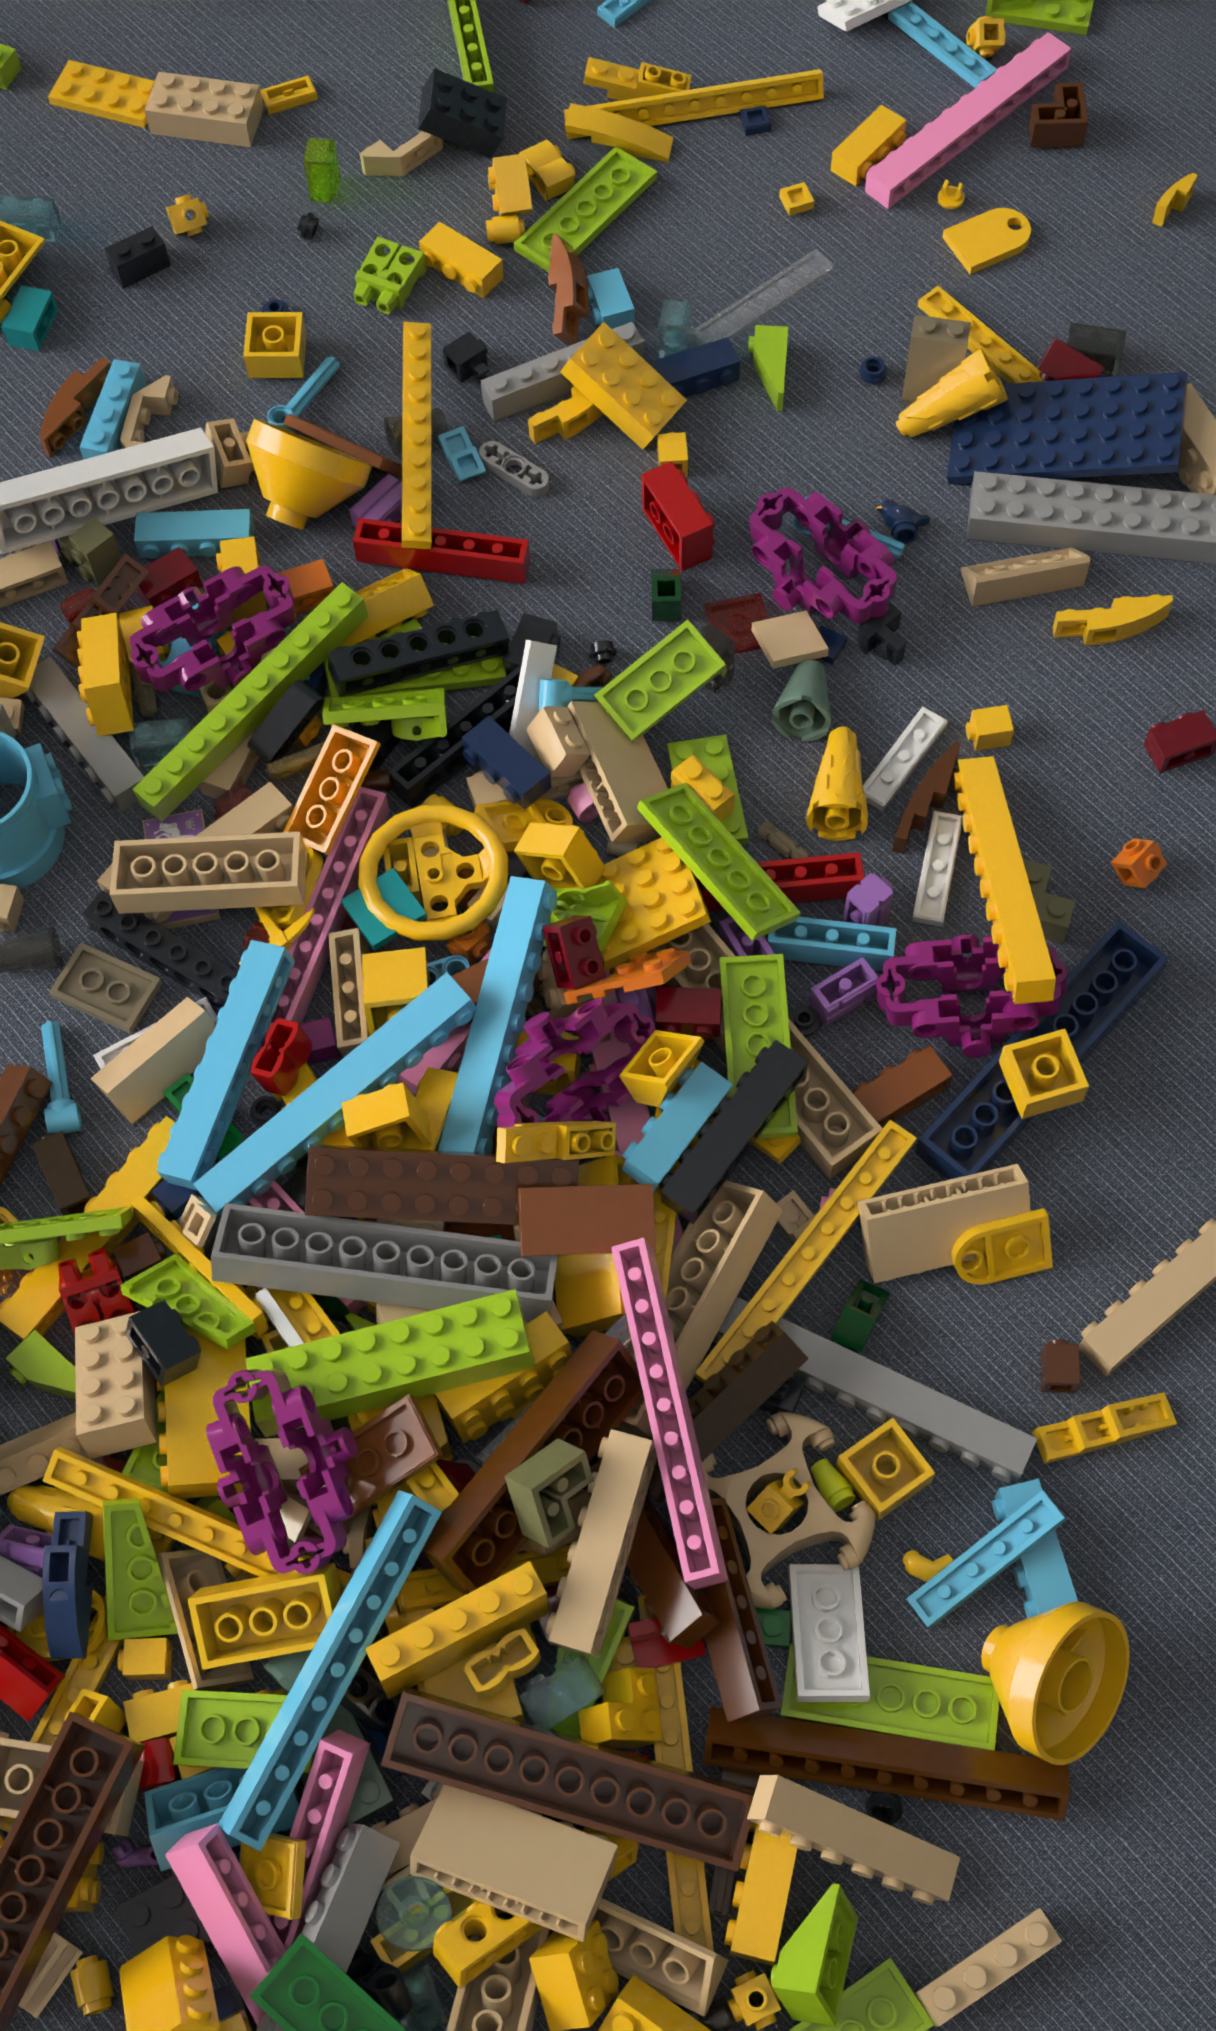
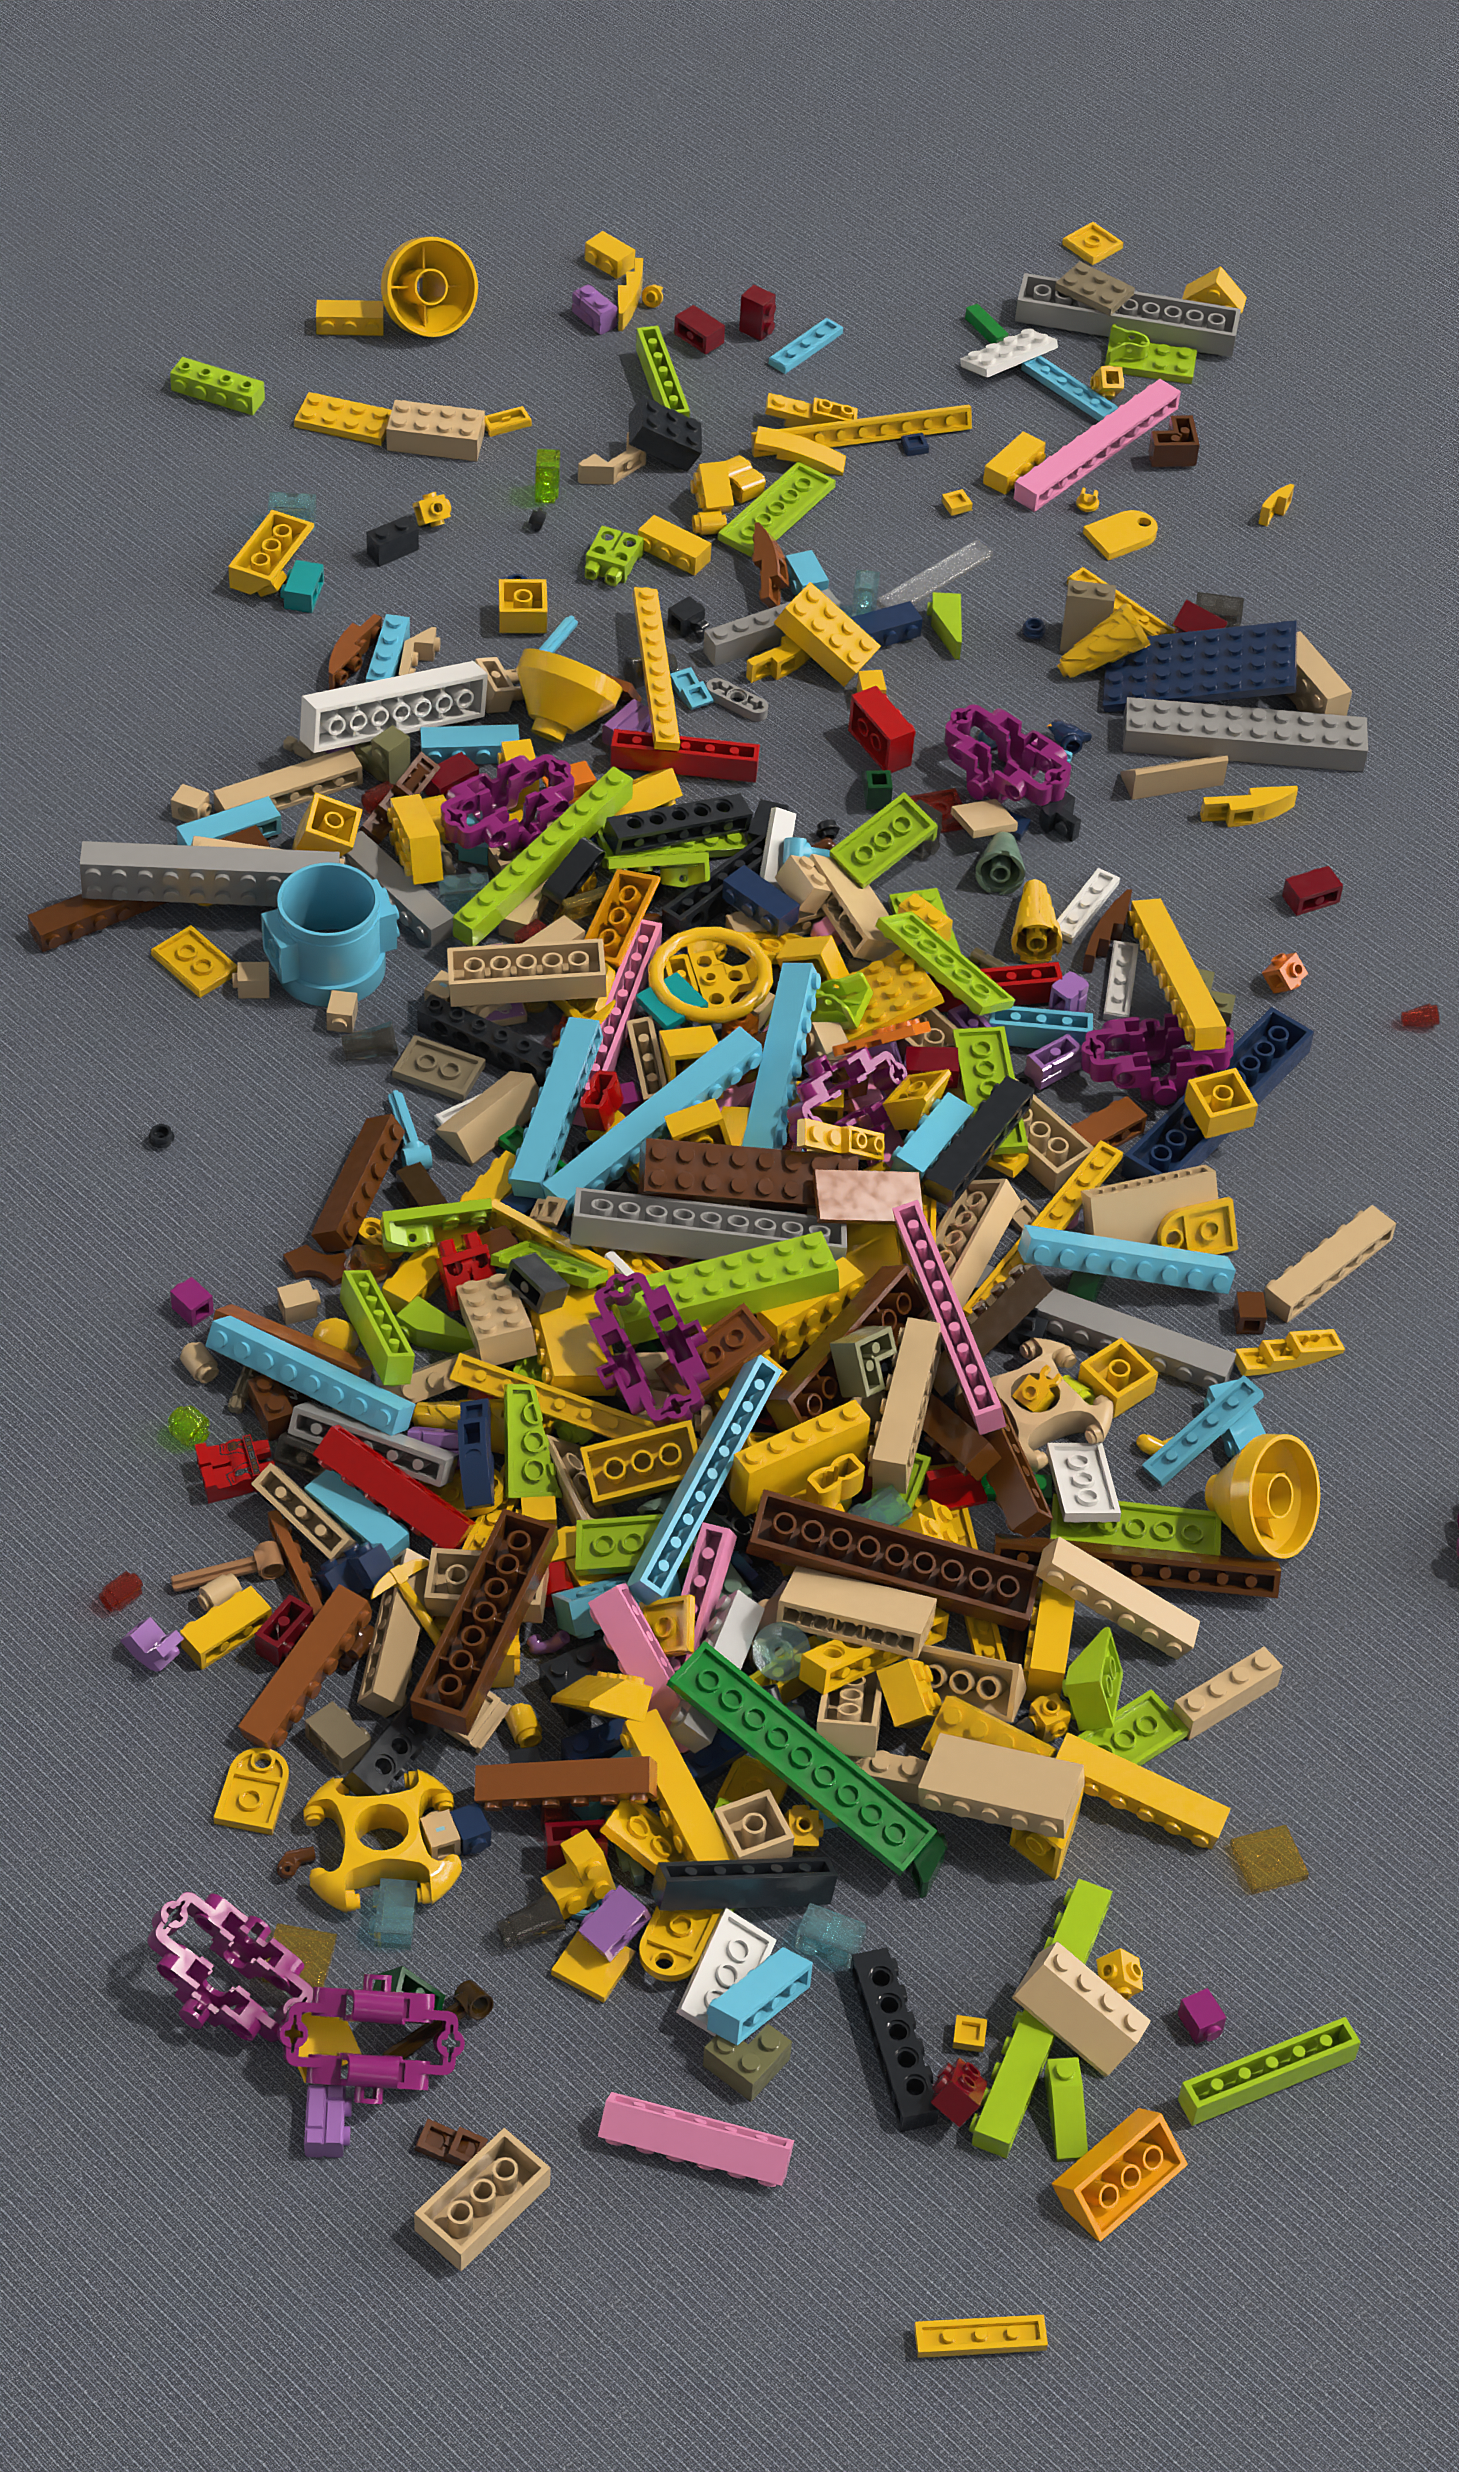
camera: 10 degrees left, 15 degrees down
(574, 952) = (838, 1017): dark red brick -> none
(907, 1301) = (1126, 1259): none -> medium azure brick
(990, 728) = (1155, 881): yellow brick -> none

